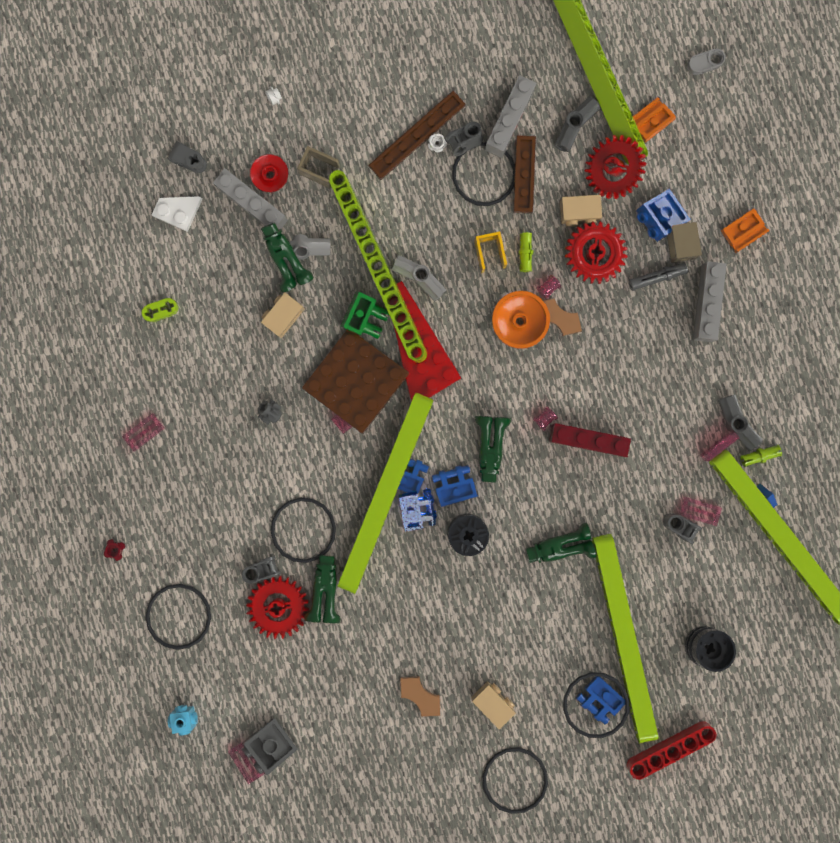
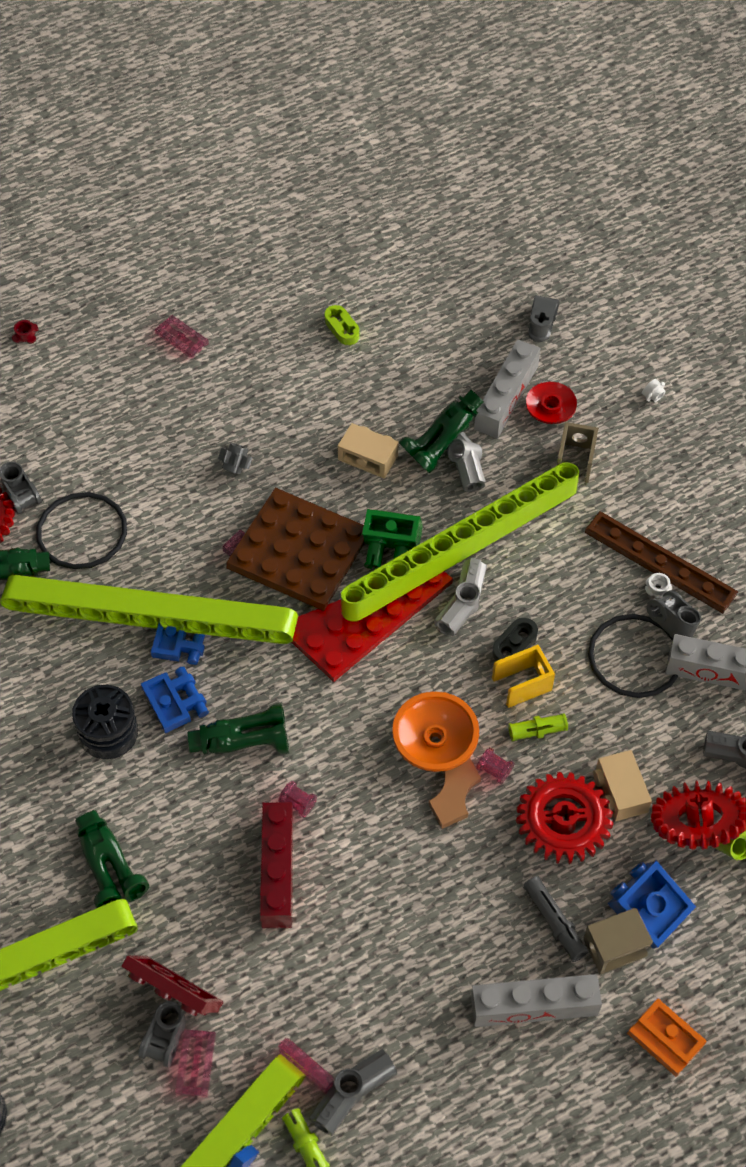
camera: 80 degrees right, 30 degrees down
(177, 210) = (473, 321): white wing -> none
(411, 512) = (127, 647): clear blue plate -> none
(460, 251) = (512, 641): none -> pearl dark grey plate
(524, 174) = (650, 702): reddish brown plate -> none
(658, 518) = (171, 985): none -> dark red plate

